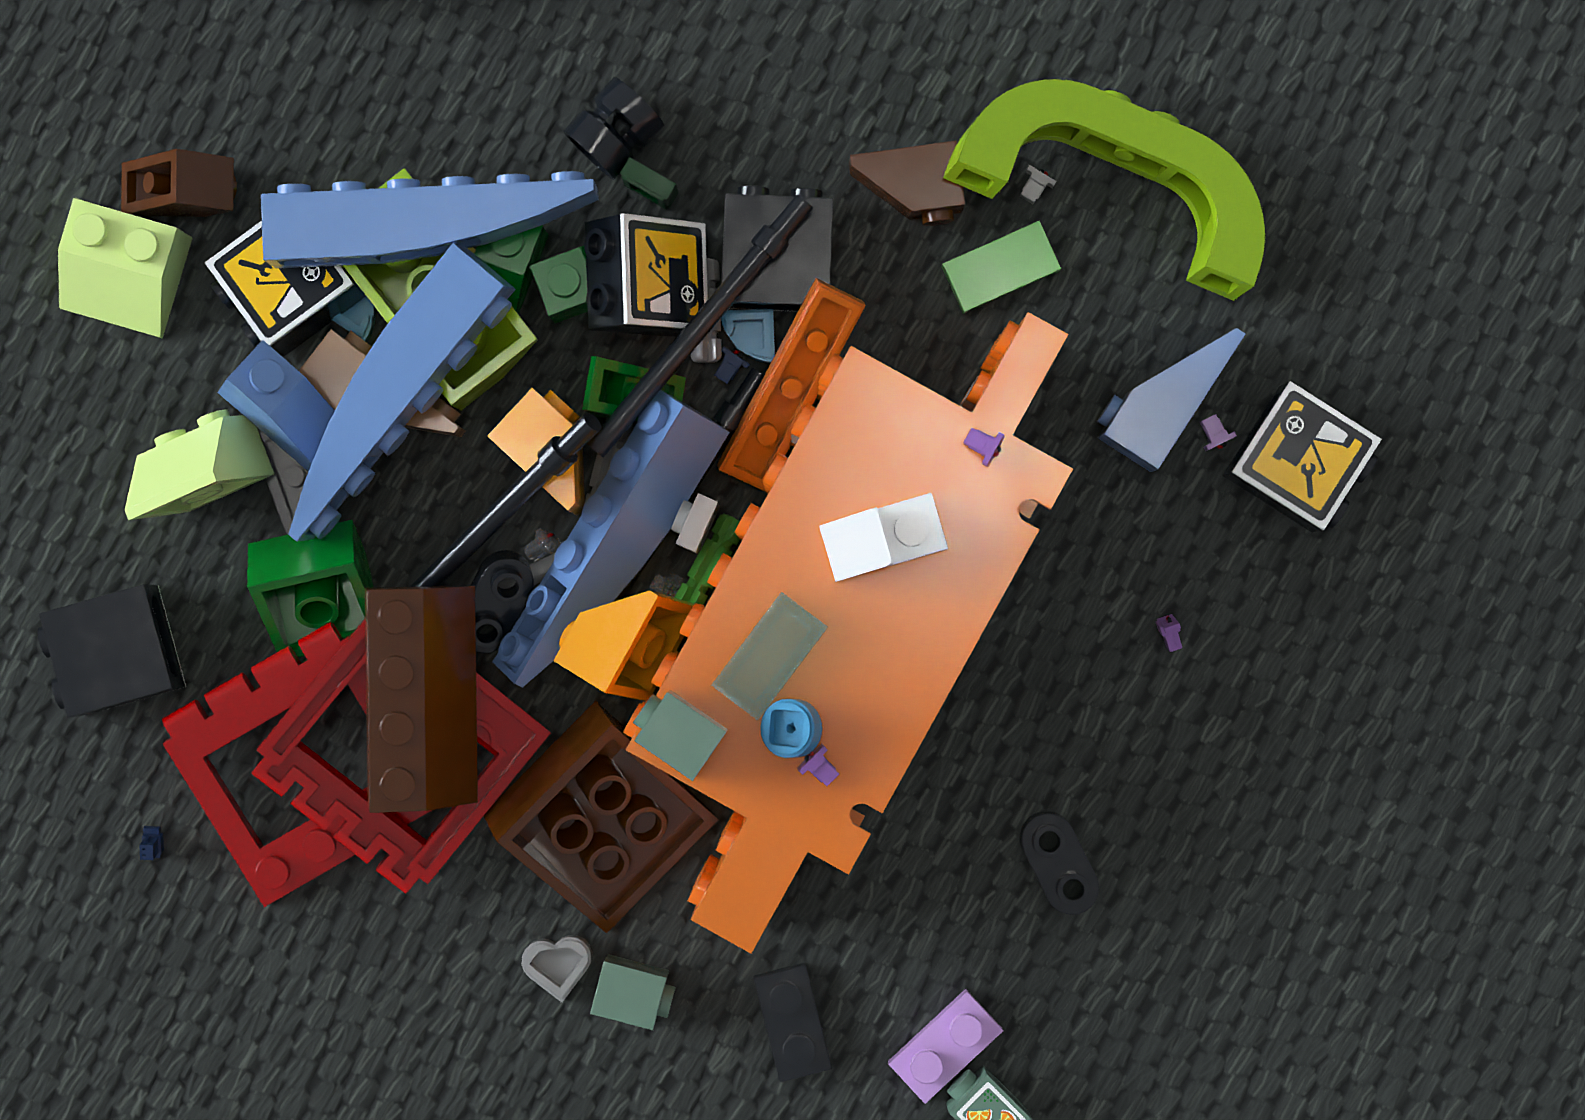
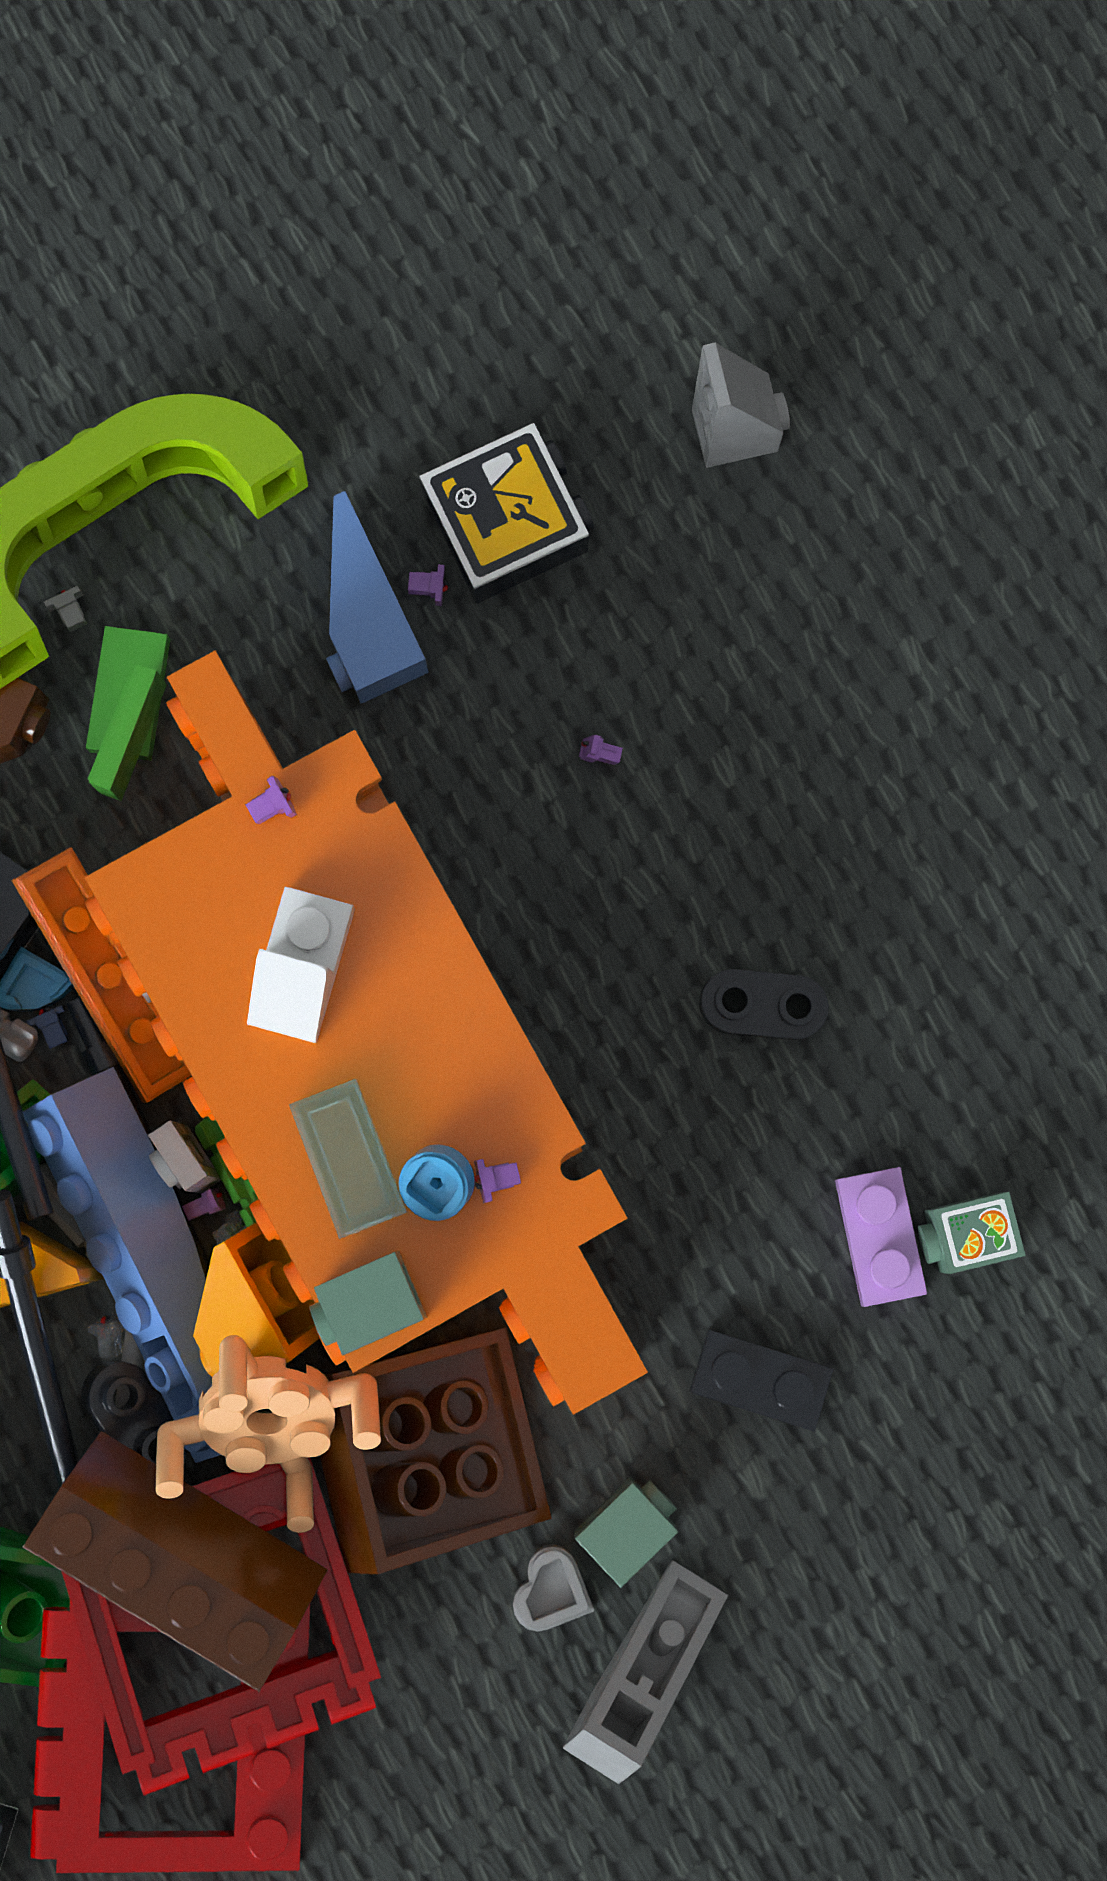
camera: 65 degrees left, 5 degrees down
(540, 1065) = (645, 1674): none -> light grey slope
(559, 722) = (295, 1429): none -> light nougat plate
(676, 557) = (210, 1202): none -> medium lavender piece
(972, 288) = (127, 731): none -> bright green tile
(1483, 579) = (736, 408): none -> light grey slope

